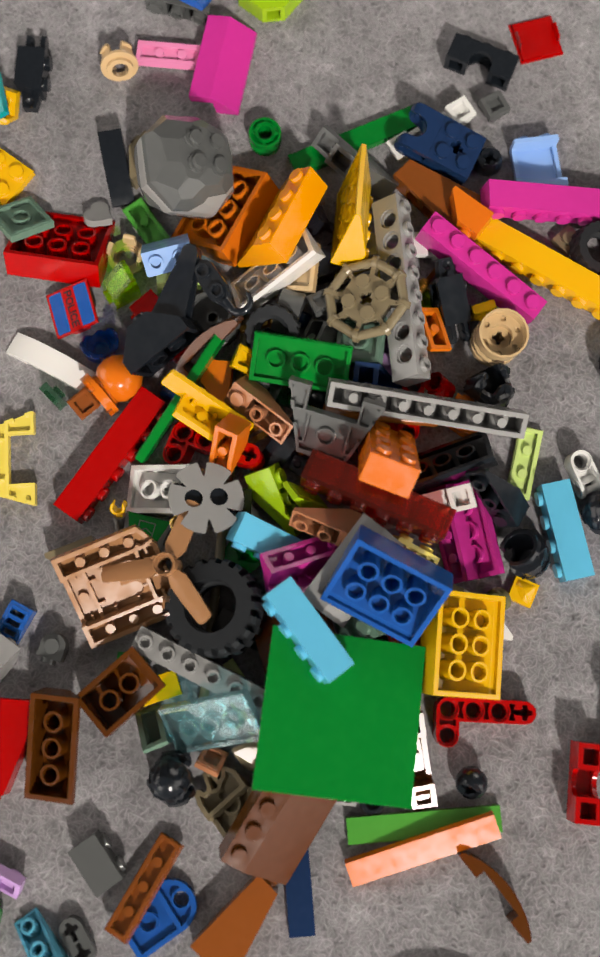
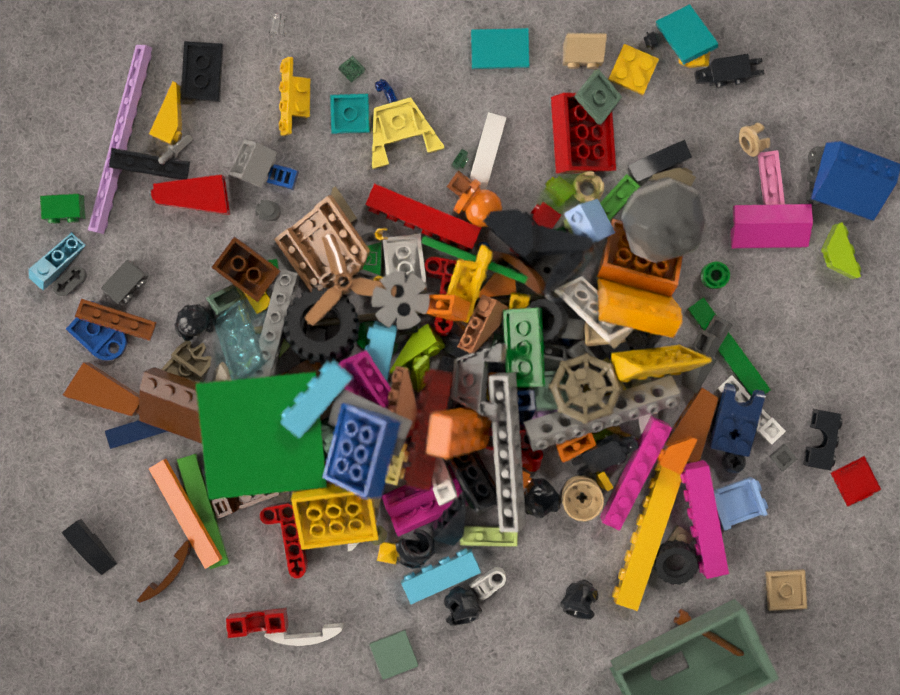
camera: 80 degrees right, 10 degrees up
(52, 745) = (197, 231): reddish brown slope -> none
(72, 309) = (533, 156): piece -> none
(98, 215) = (617, 156): light grey tile -> none
(100, 345) = (507, 186): clear blue hair -> none
(211, 761) = (212, 347): nougat tile -> none
(471, 782) = (239, 540): black piece -> none

